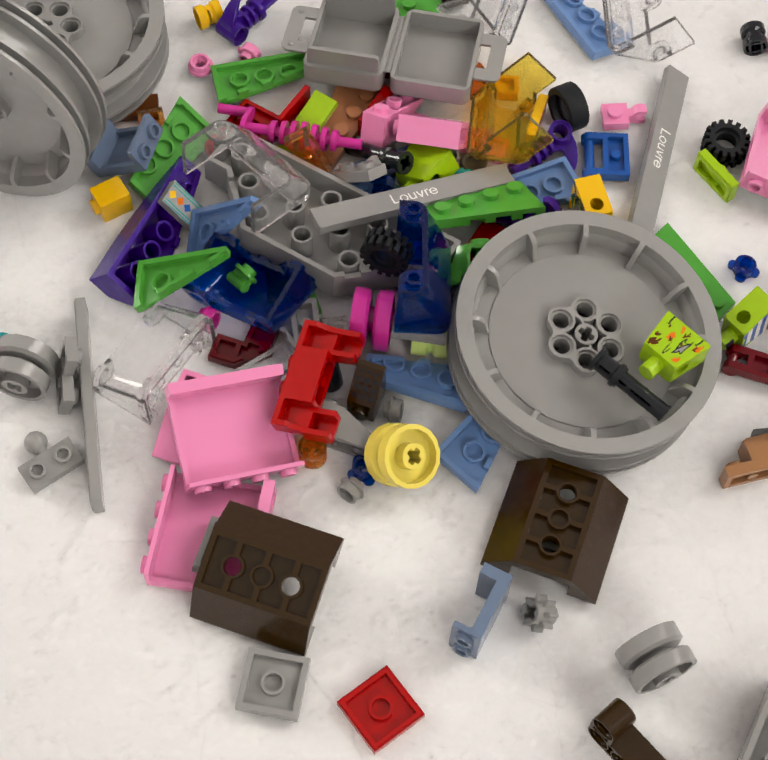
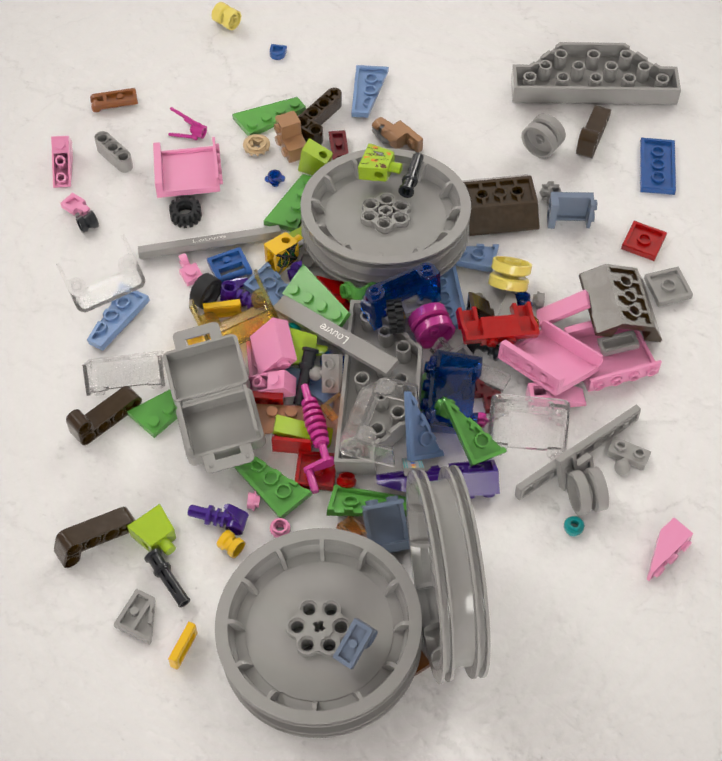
camera: 115 degrees left, 5 degrees down
(305, 496) = (564, 308): none -> bright pink tile
(716, 175) = (214, 207): lime plate -> none

